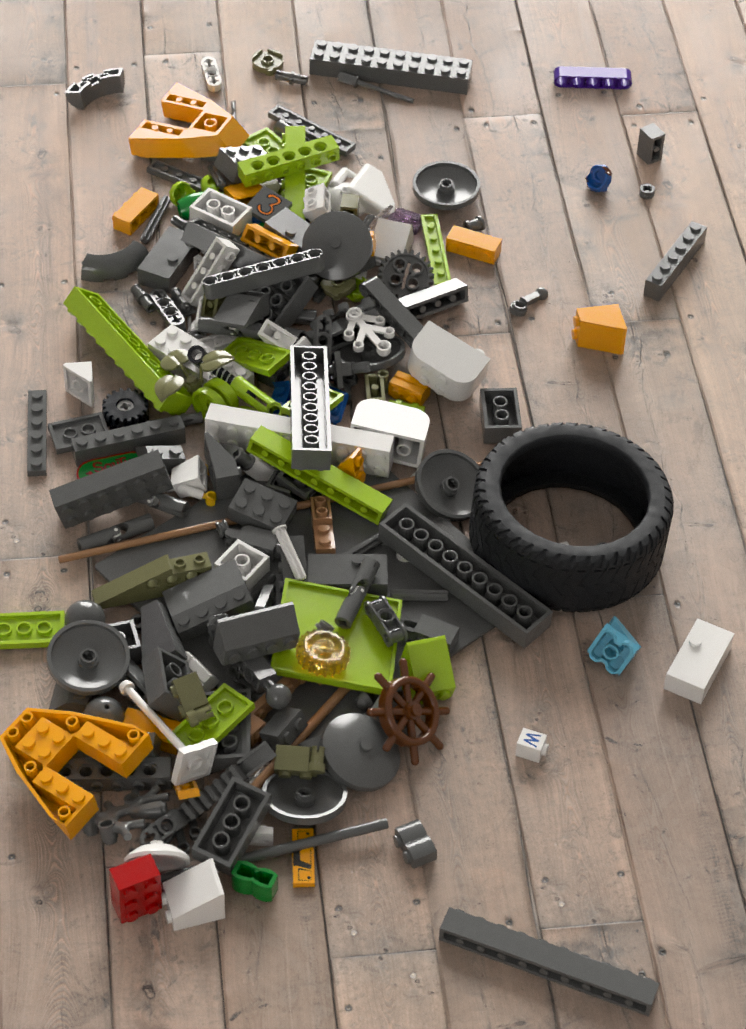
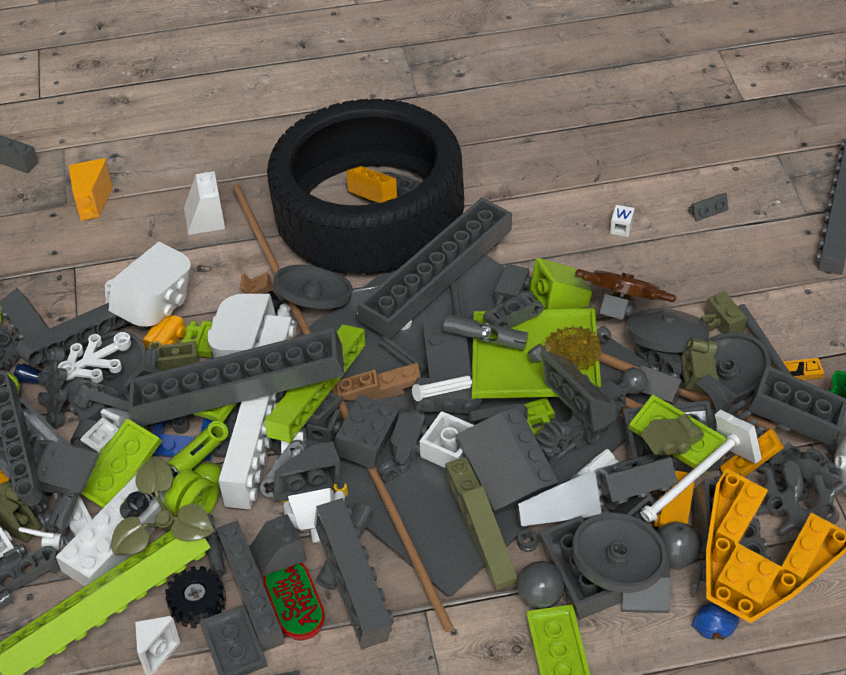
camera: 90 degrees left, 0 degrees up
(113, 534) = (405, 587): dark grey piece -> none
(379, 806) = (724, 314): none -> olive brick
(415, 843) = (754, 289): dark grey brick -> none
(466, 445) = (257, 285): none -> medium nougat bracket
(499, 413) = (212, 257): dark grey brick -> none
(519, 307) = (40, 257): dark grey piece -> none
(548, 826) = (709, 207): none -> dark grey hinge
(572, 406) = (203, 205): none -> white slope
(591, 531) = (371, 184): none -> light orange brick
(614, 647) = (504, 168): medium azure piece -> none
(698, 661) = (506, 121): white brick -> none

